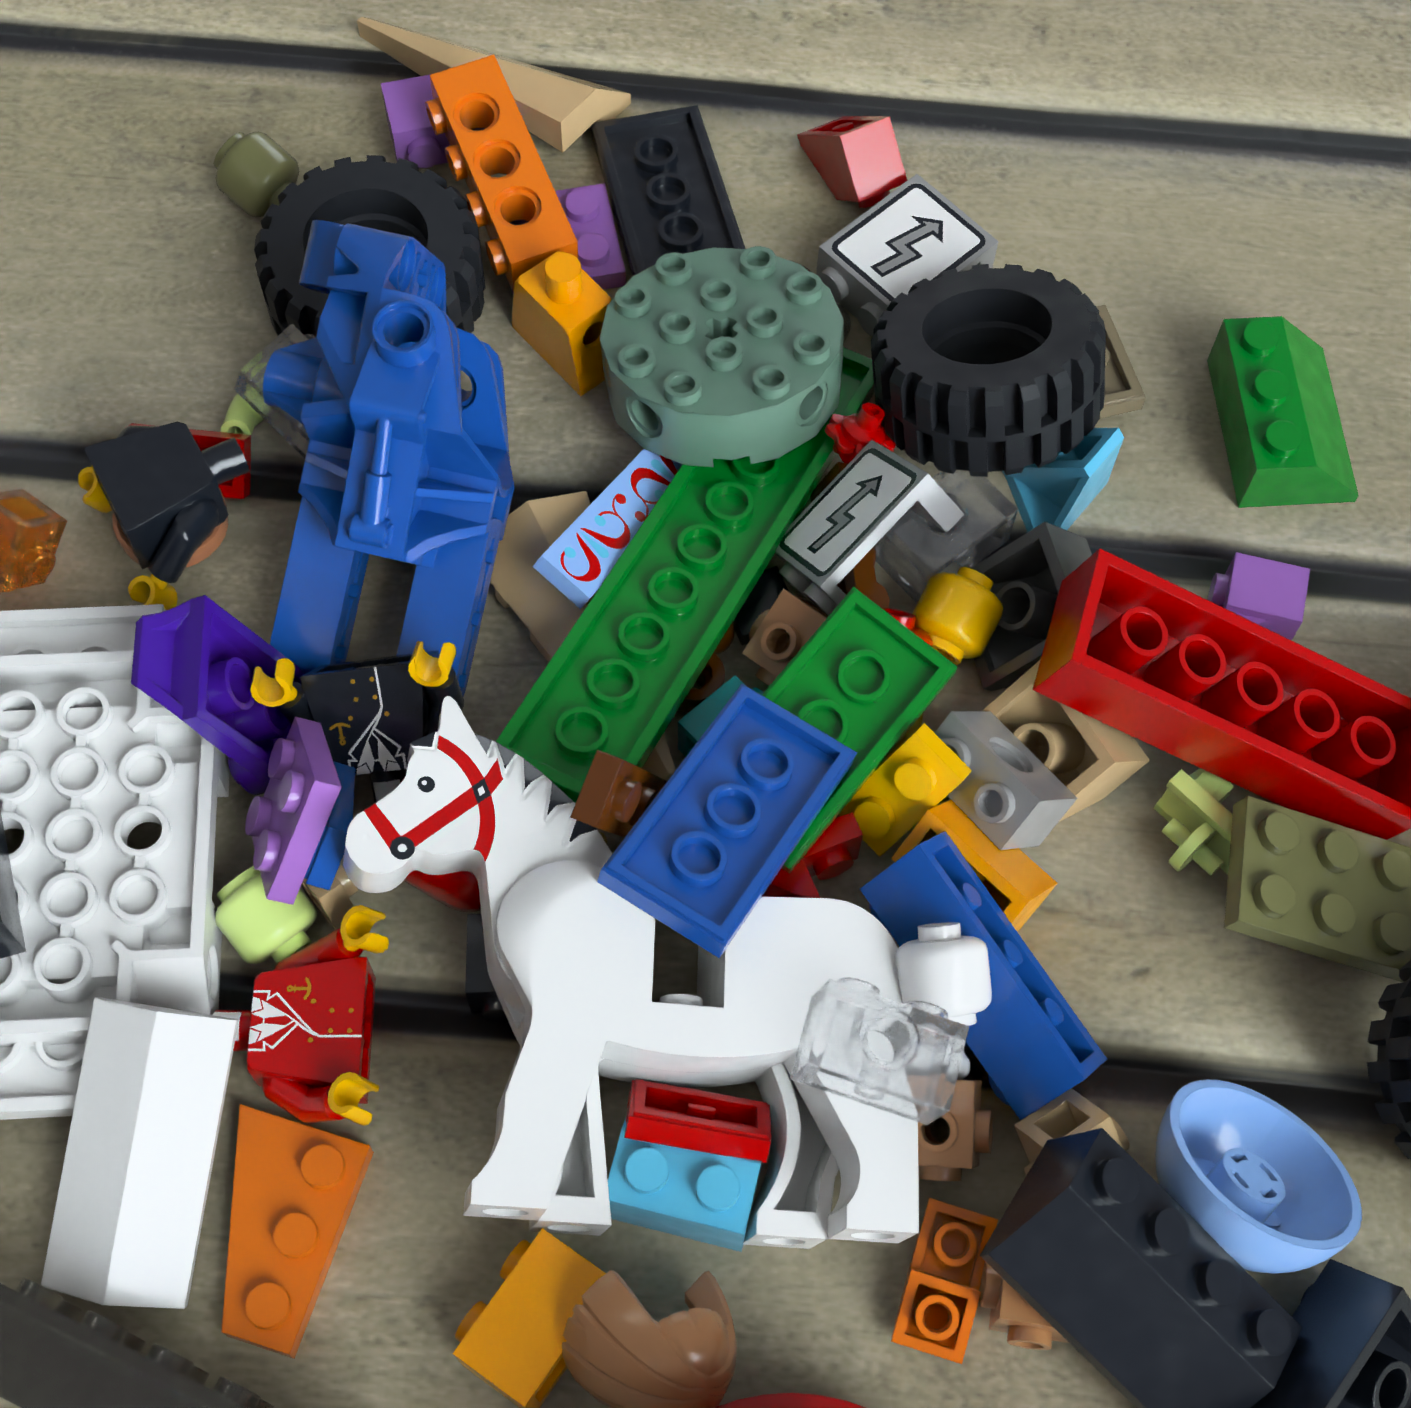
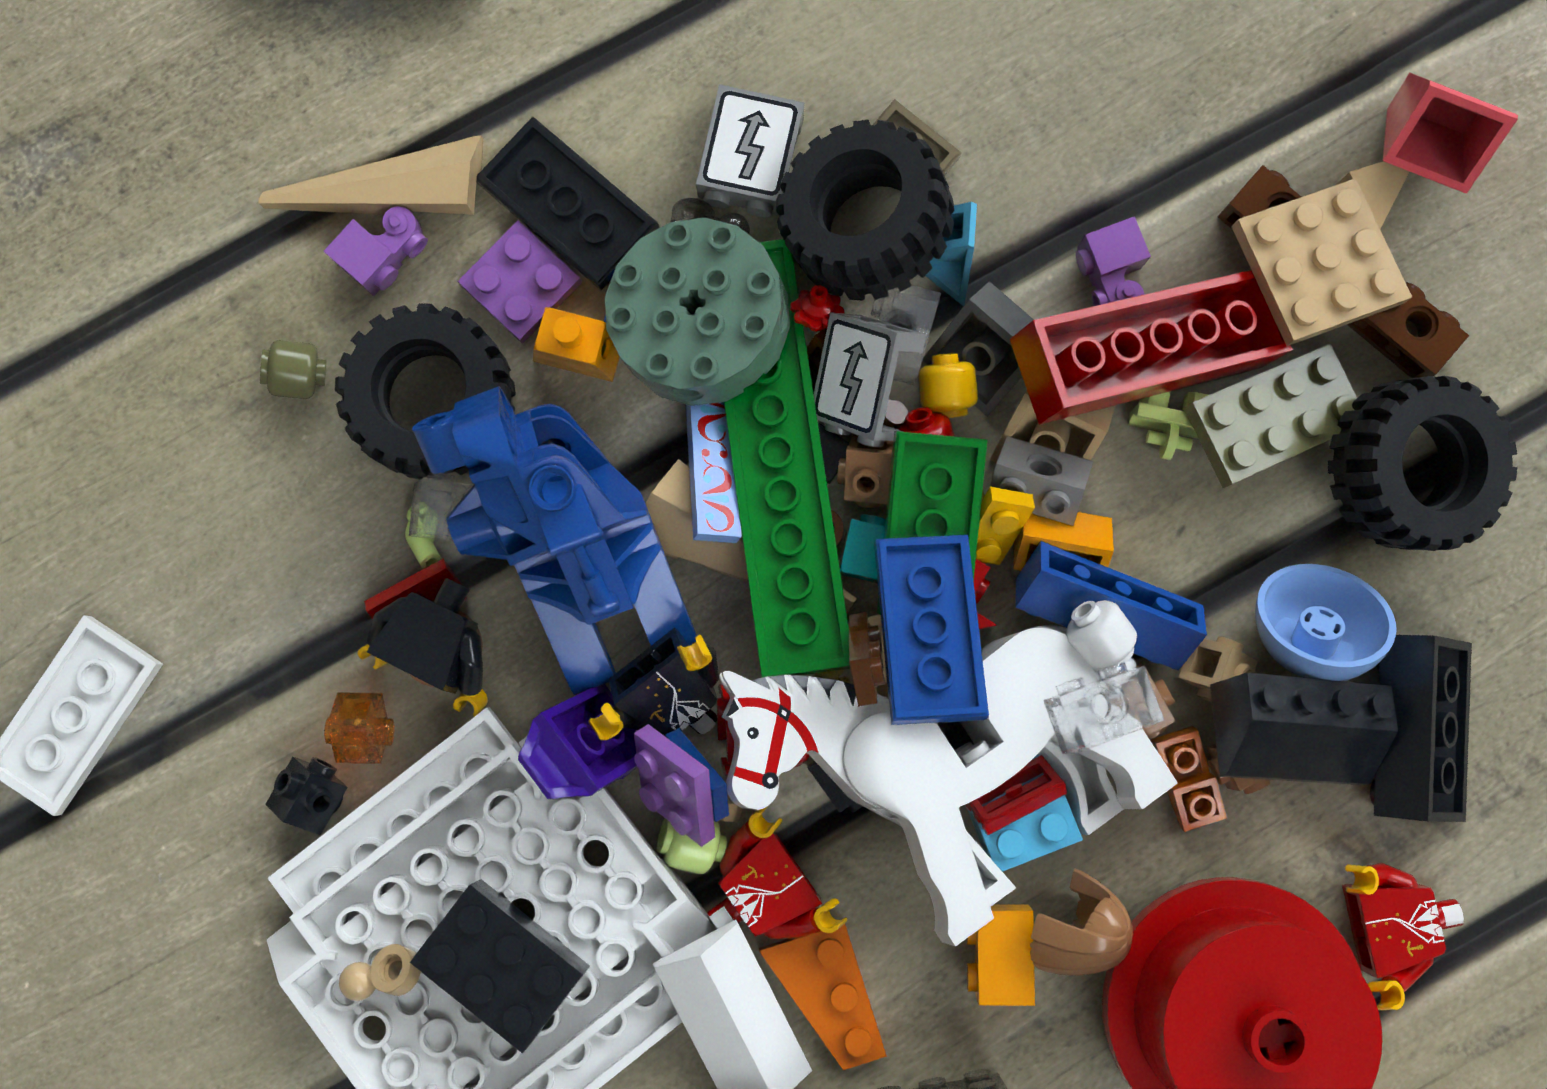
camera: 30 degrees left, 20 degrees up
(480, 98) = (407, 224): orange brick -> none
(856, 157) = (663, 90): slope -> none
(1278, 415) = (1046, 108): green slope -> none

